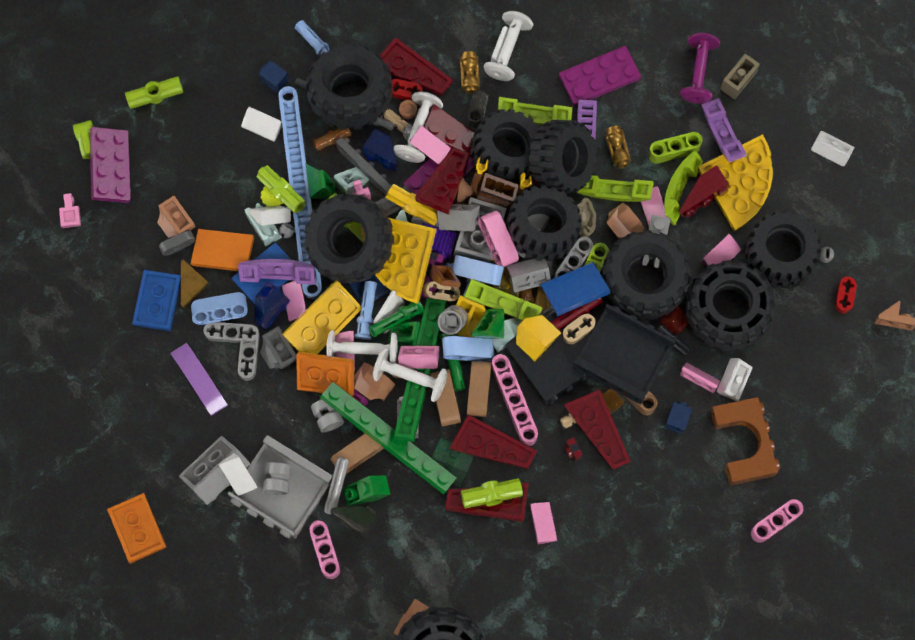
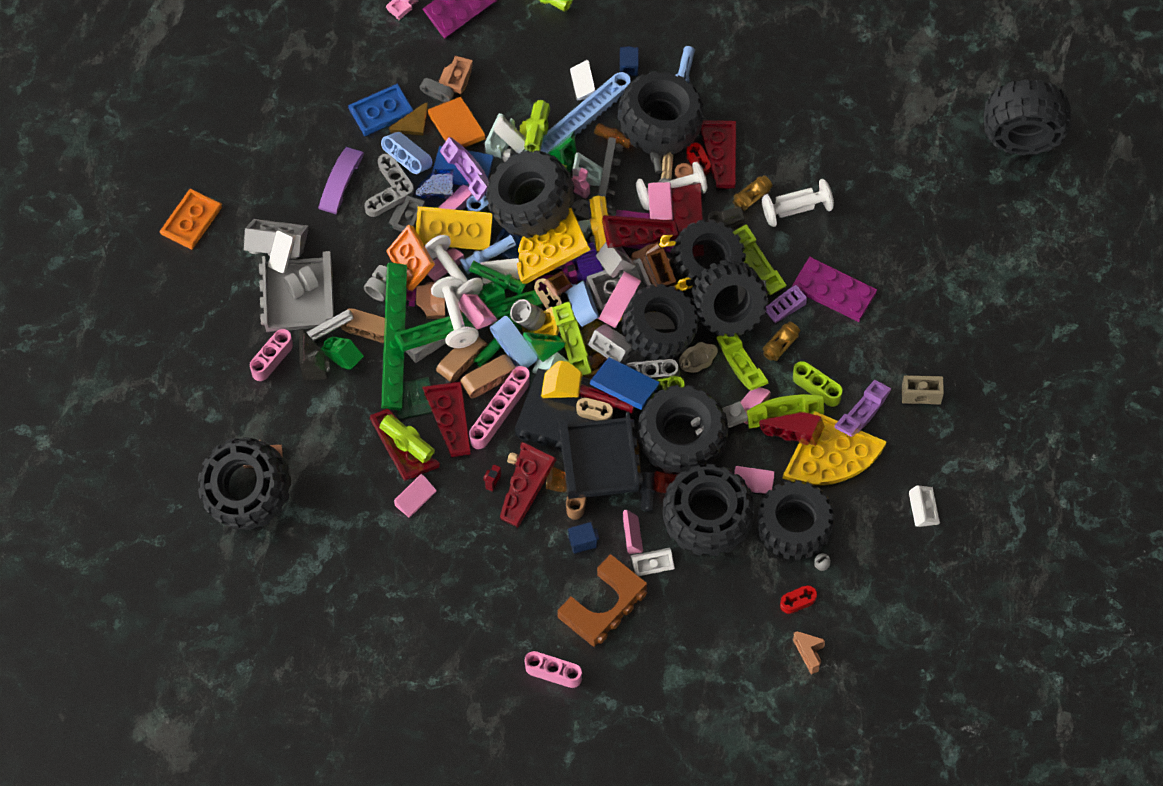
camera: 55 degrees right, 10 degrees down
(380, 148) = (630, 171): clear blue slope -> none
(623, 221) = (719, 387): nougat slope -> none
(703, 43) = (928, 342): magenta hose -> none

